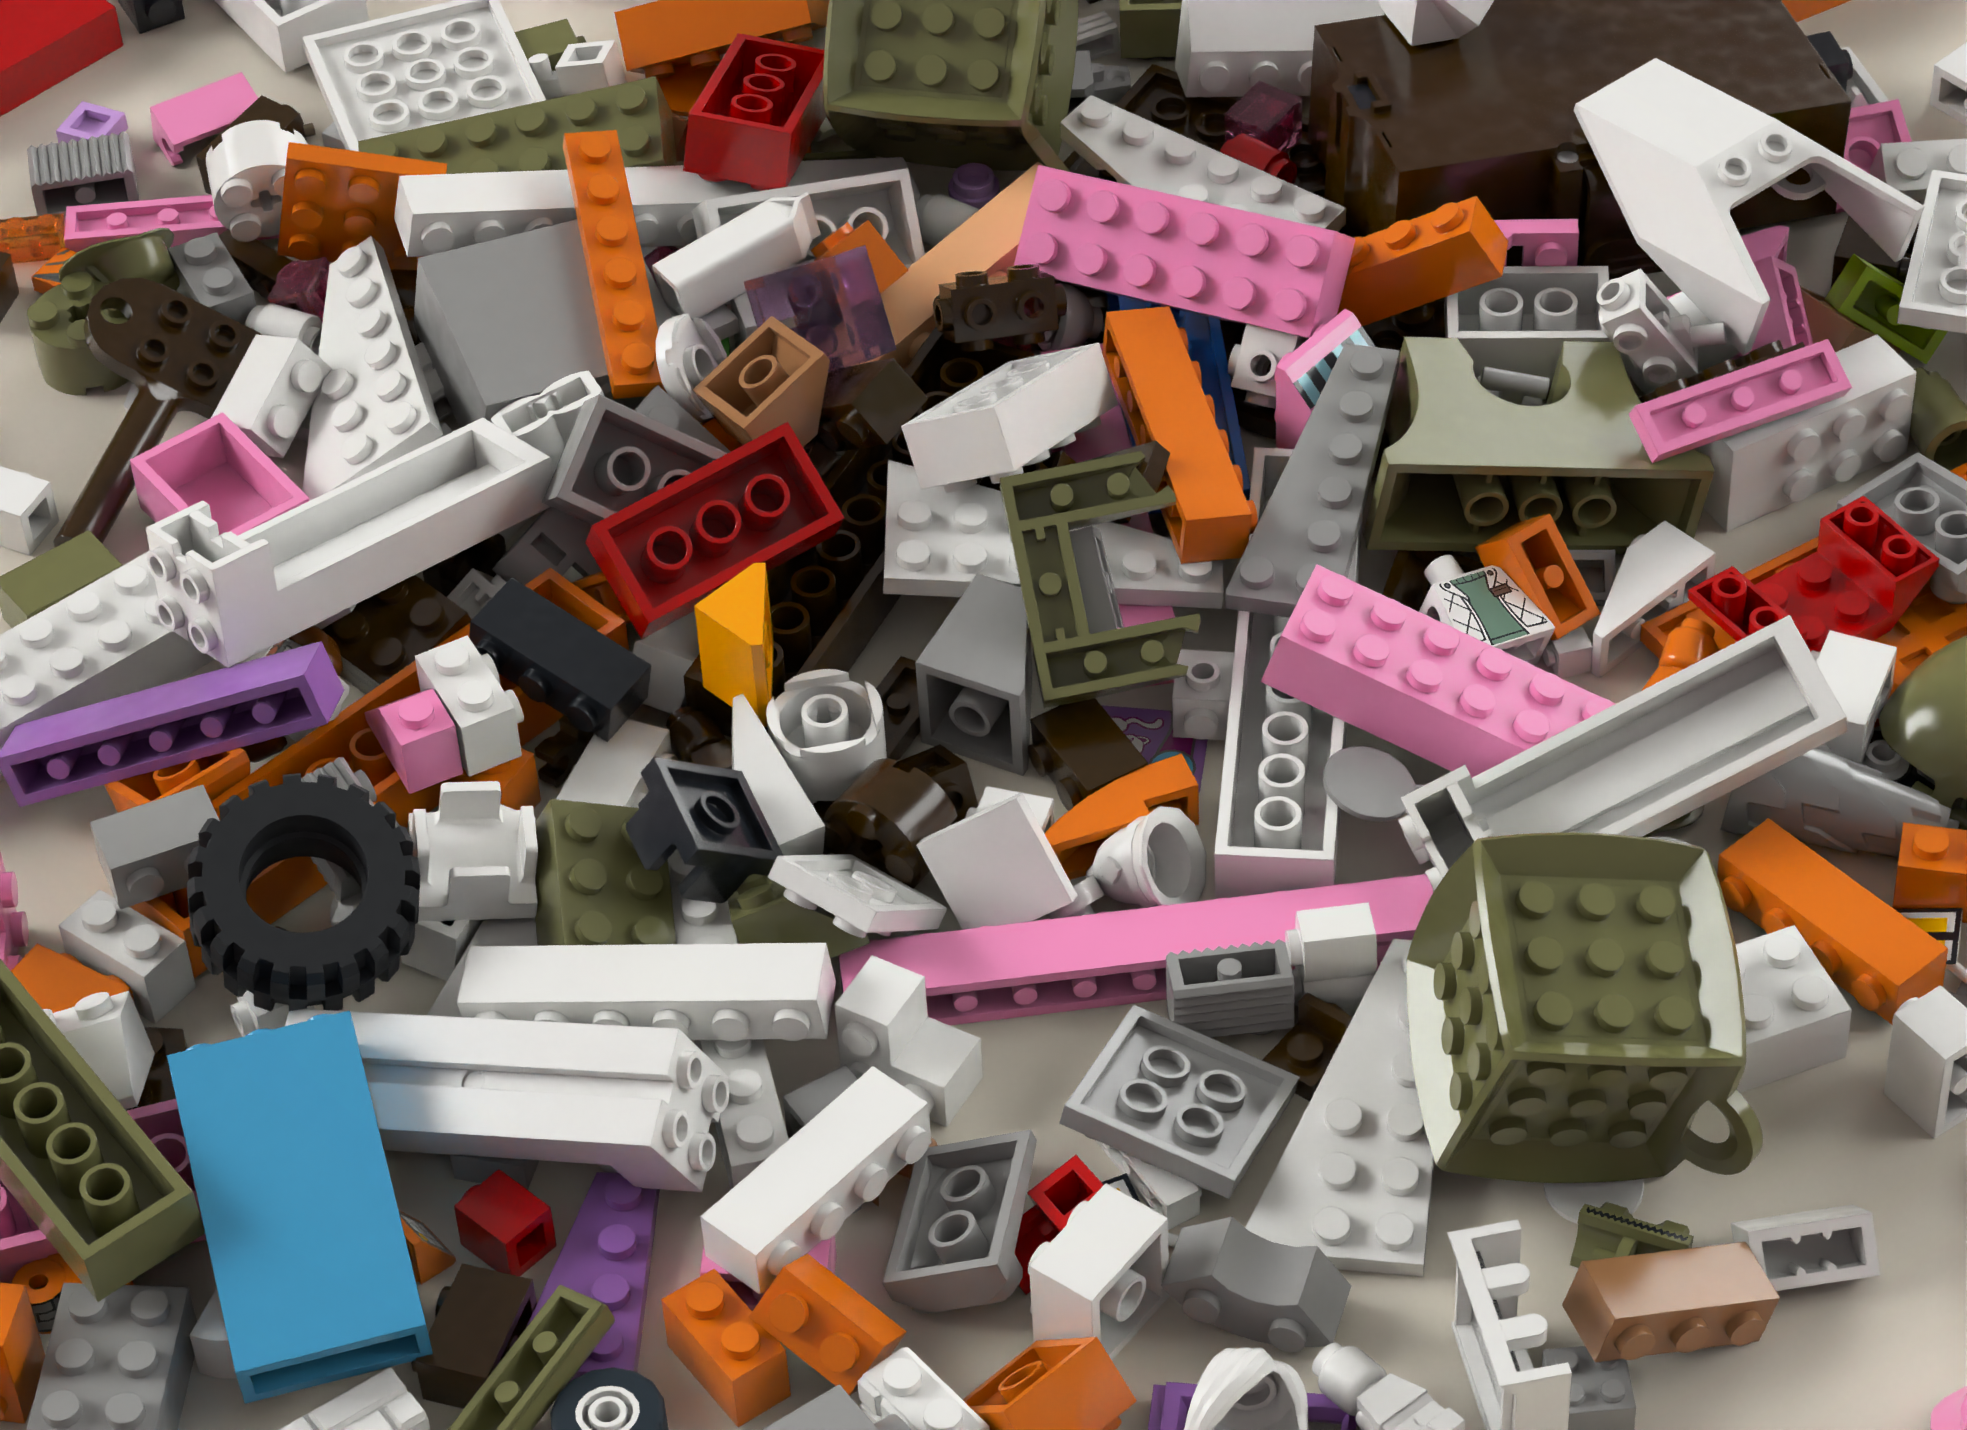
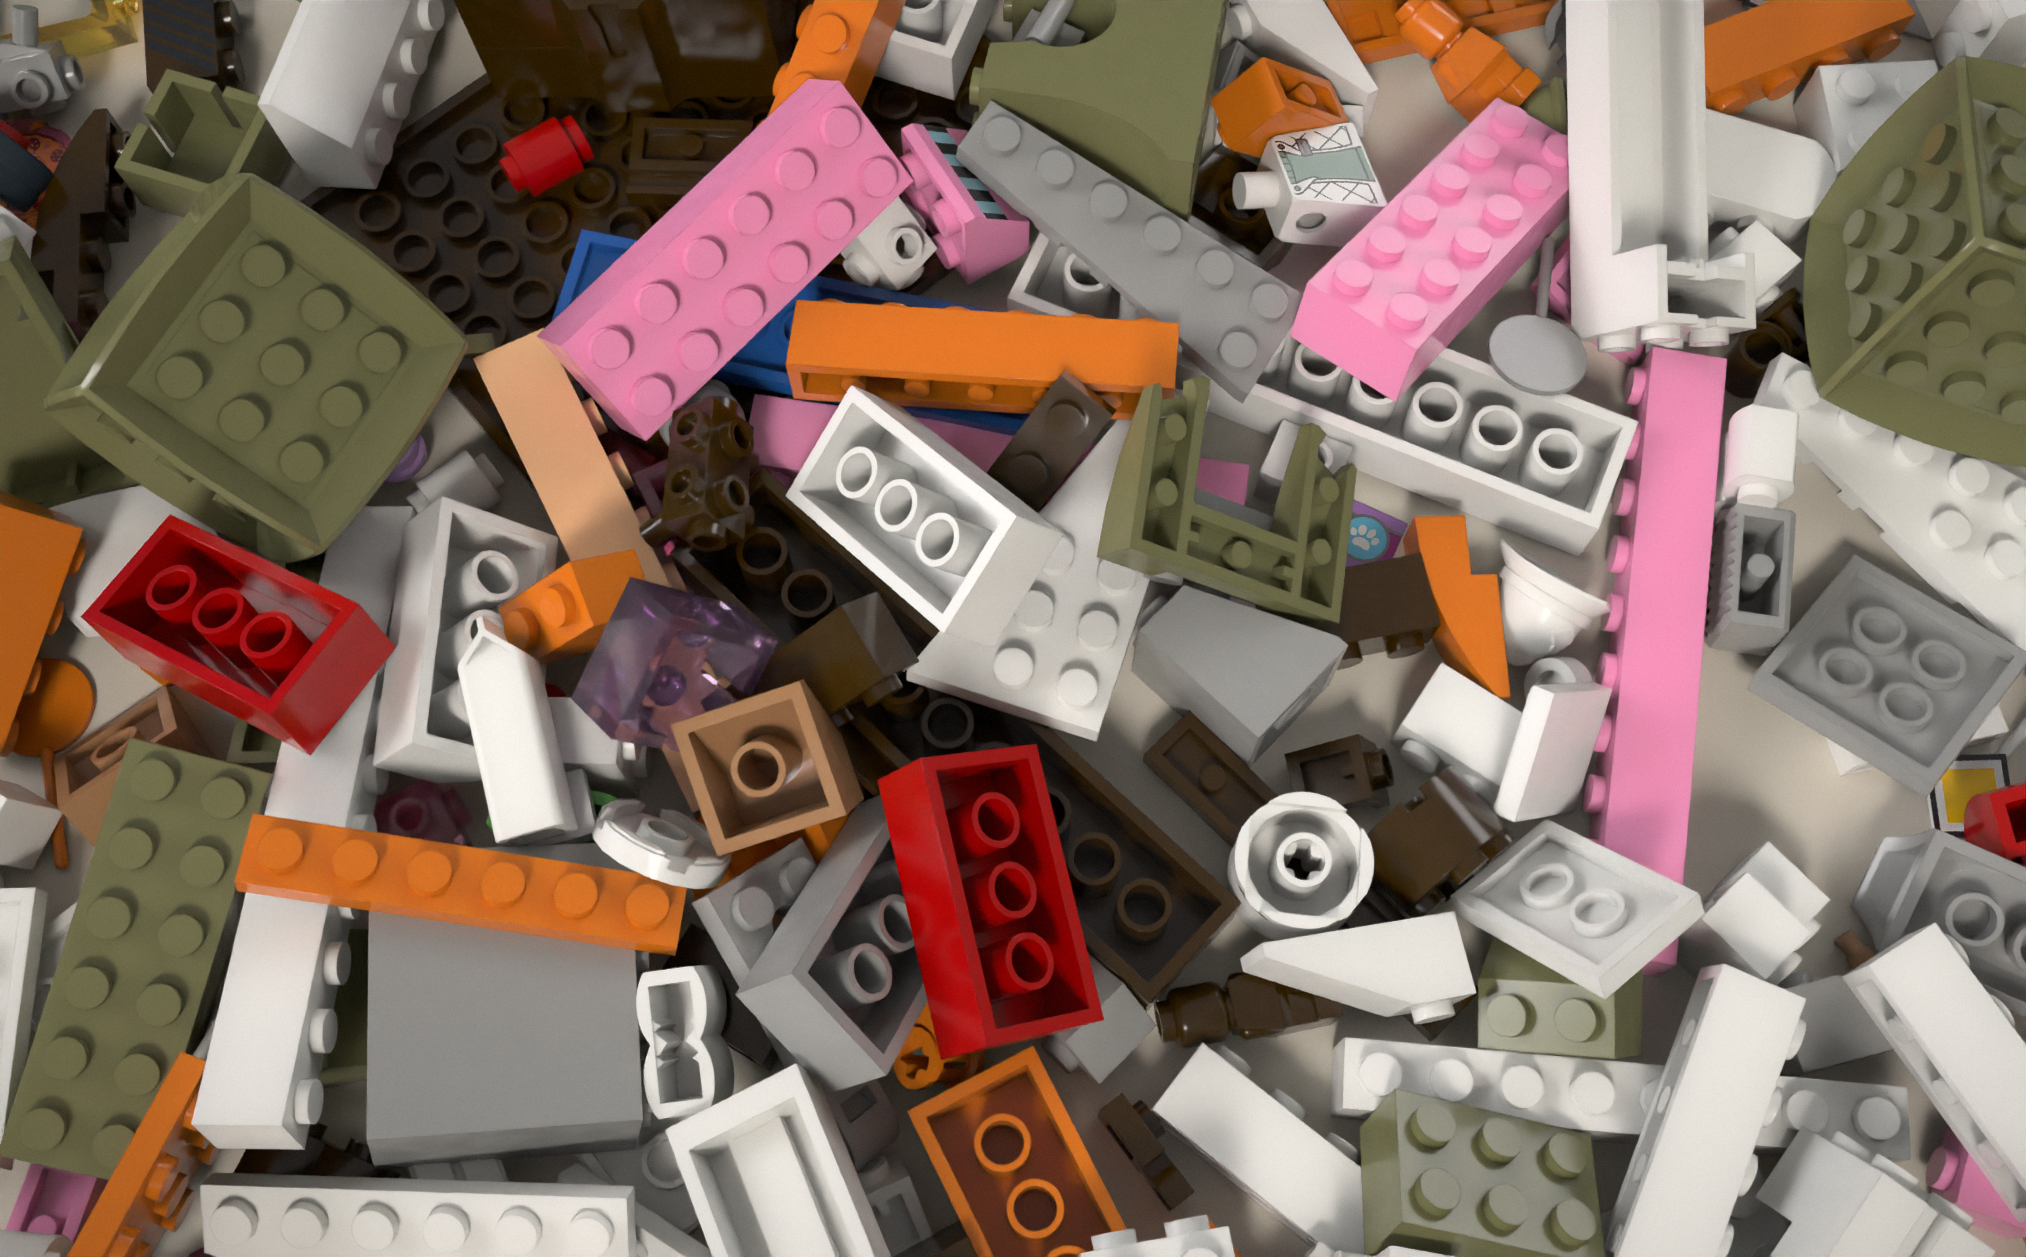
camera: 75 degrees left, 25 degrees up
(560, 660) = (1107, 1149): black brick -> none
(711, 823) = (1479, 1044): black panel -> none
(738, 640) = (1197, 916): light orange slope -> none
(1170, 163) = (568, 215): white wing -> none
(1267, 116) = (476, 123): clear pink brick -> none
(1310, 1043) = (1820, 537): dark brown bracket -> none

